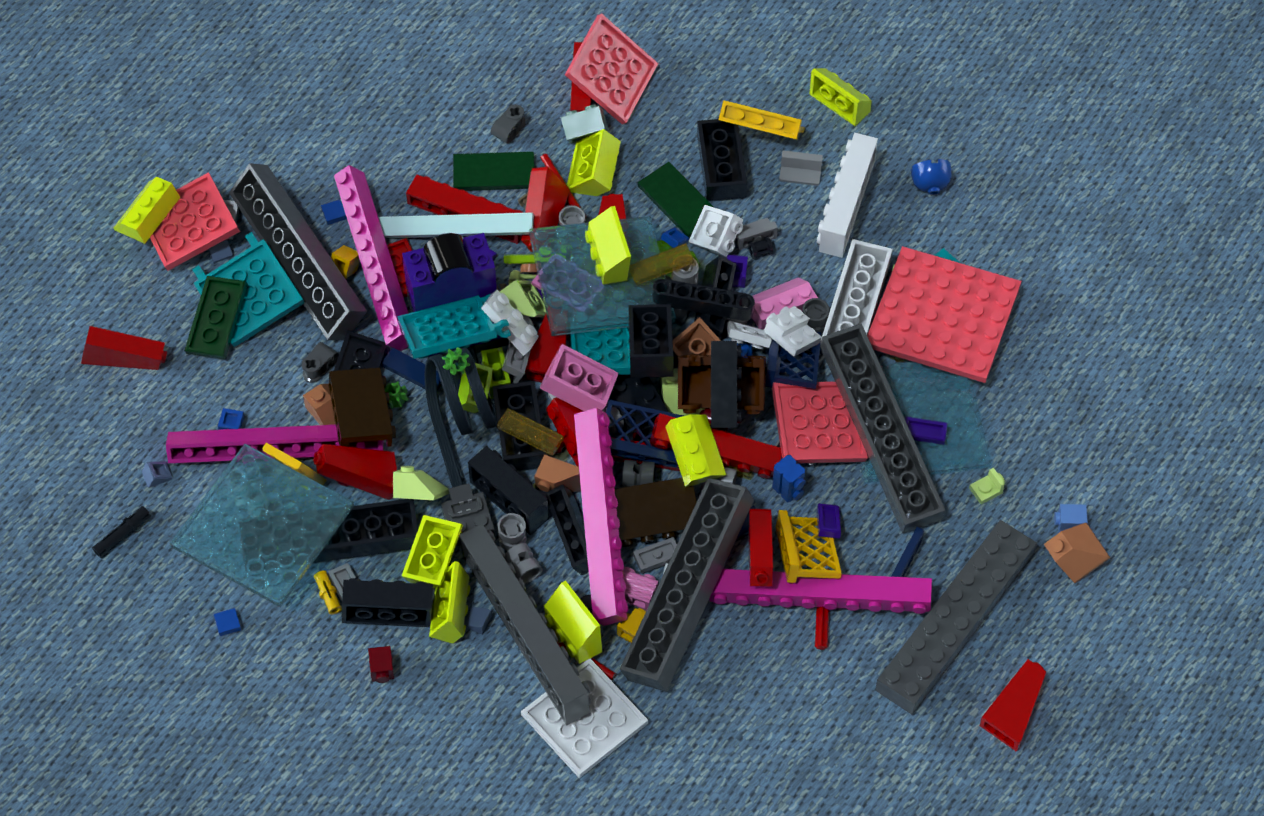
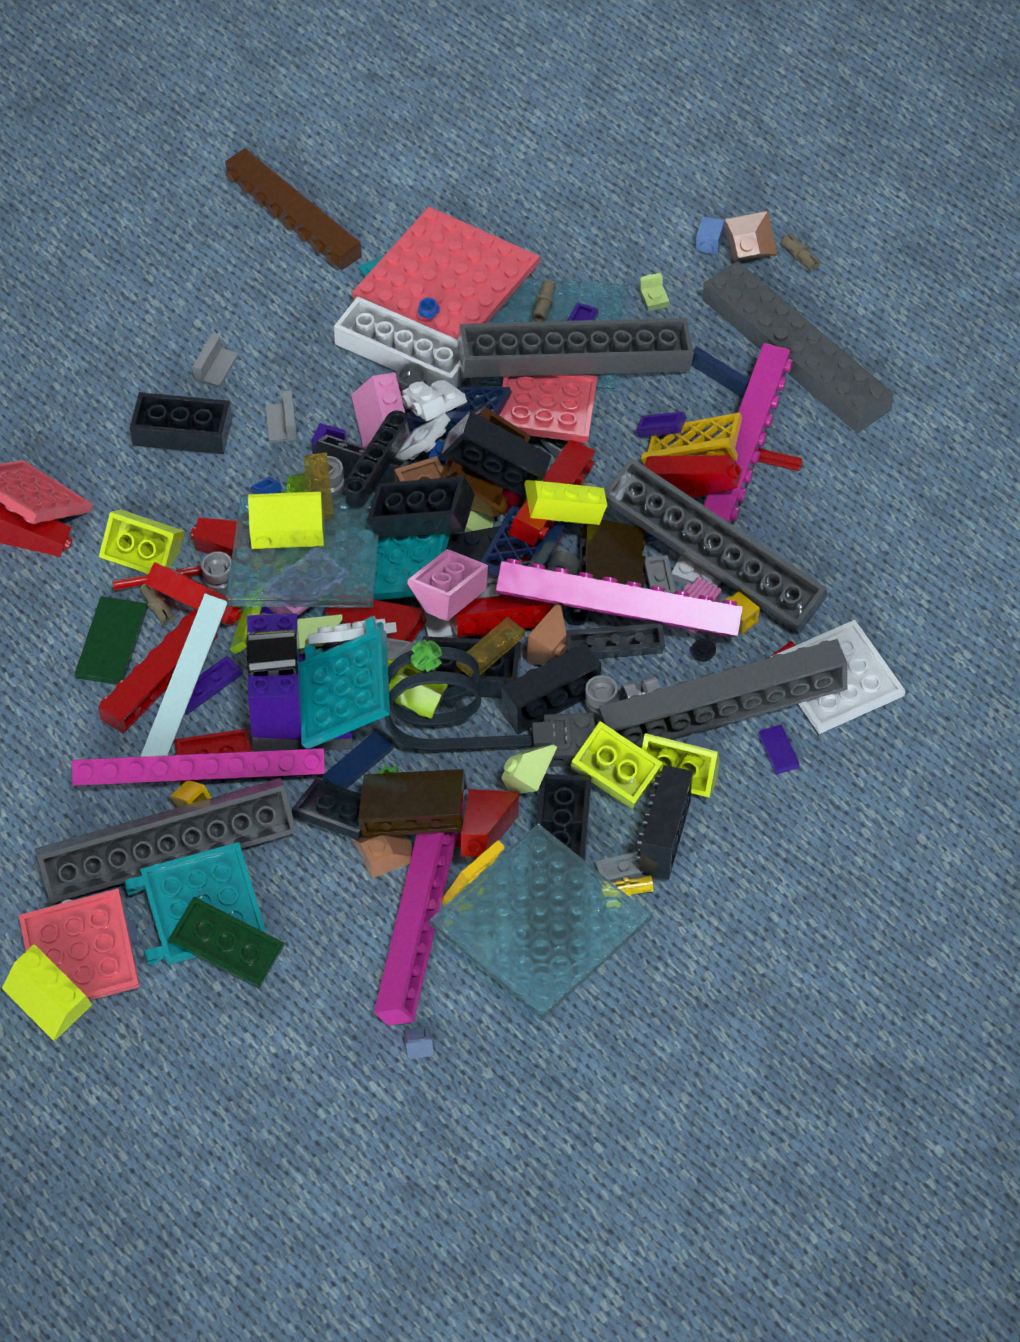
camera: 75 degrees left, 5 degrees down
(119, 533) = (484, 1077): black pin -> none
(122, 350) = (239, 1051): red slope -> none
(227, 622) = (637, 994): blue tile -> none
(231, 419) = (371, 951): blue plate -> none
(318, 362) = (319, 850): dark grey piece -> none
(333, 212) = (110, 806): blue tile -> none
(381, 664) = (732, 848): dark red brick -> none
(497, 685) = (778, 749): none -> dark purple tile
(509, 124) = (54, 610): dark grey piece -> none
(573, 624) = (731, 648): neon yellow slope -> none
(583, 123) = (88, 535): brick -> none
(674, 197) = (213, 477): dark green tile -> none
(716, 230) = (276, 444): white plate -> none
(760, 247) = (305, 418): black bush -> none
(761, 120) = (152, 371): yellow fence -> none
(789, 479) = (607, 441): blue brick -> none
(839, 95) = (136, 307): neon yellow slope -> none
(847, 194) = (271, 322): white brick -> none
(890, 299) = (428, 308): none -> blue plate
(931, 176) = (271, 252): blue cylinder -> none
(939, 396) = (544, 301): none -> dark tan pin
(991, 182) = (293, 209): none -> reddish brown brick
(1012, 709) = (904, 324): red slope -> none
(1080, 601) = (800, 252): none -> dark tan pin

